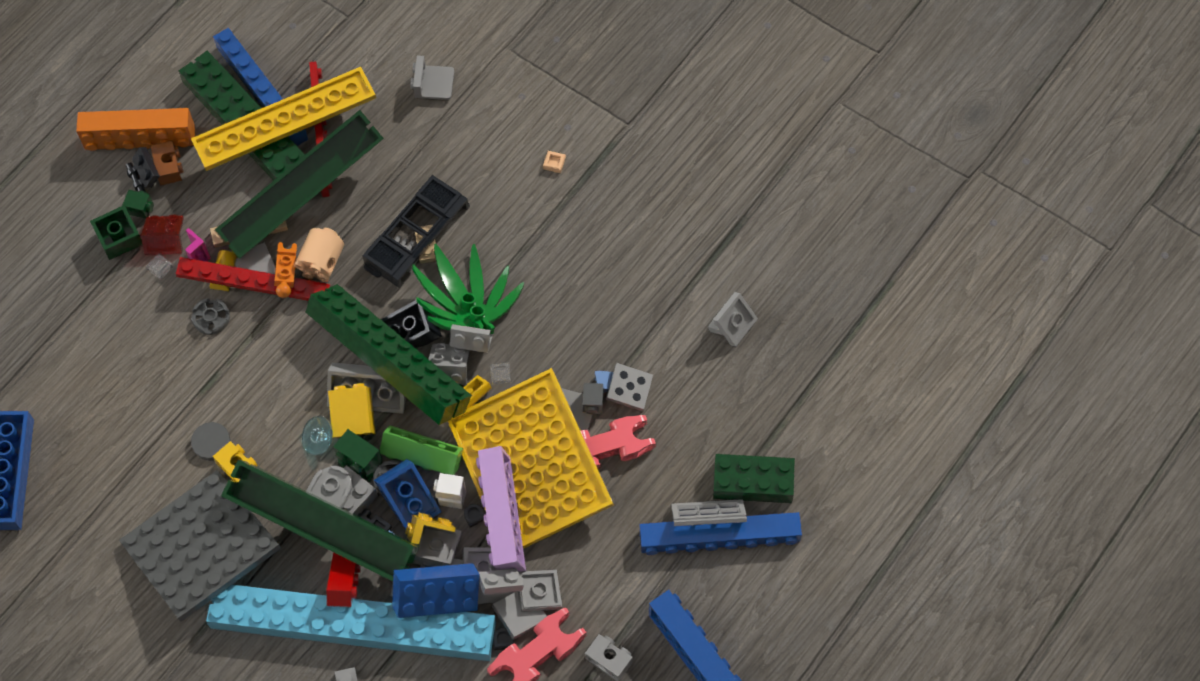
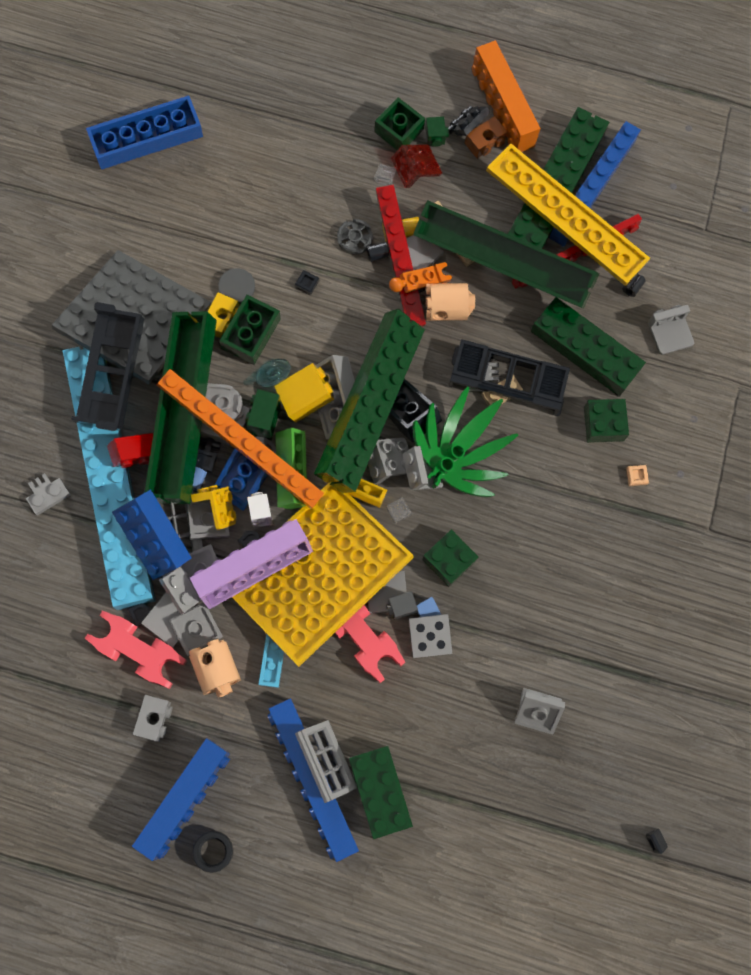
camera: 60 degrees right, 10 degrees up
(197, 249) = (408, 197): dark pink panel -> none
(218, 549) = (117, 330): none -> black piece
(237, 300) = (377, 251): none -> black piece
(237, 375) = (307, 282): none -> black tile
(264, 440) = (250, 329): none -> dark green brick
(376, 475) = (240, 438): none -> orange plate
(380, 97) = (634, 285): none -> black piece
(416, 154) = (587, 346): none -> dark green brick
(493, 166) = (606, 420): none -> dark green brick
(565, 343) = (450, 558): none -> dark green brick
(592, 581) = (215, 674): none -> light nougat cylinder
(598, 533) = (271, 664): none -> medium azure plate
(755, 628) = (197, 851): none -> black tyre
(880, 271) = (657, 841): none -> black slope

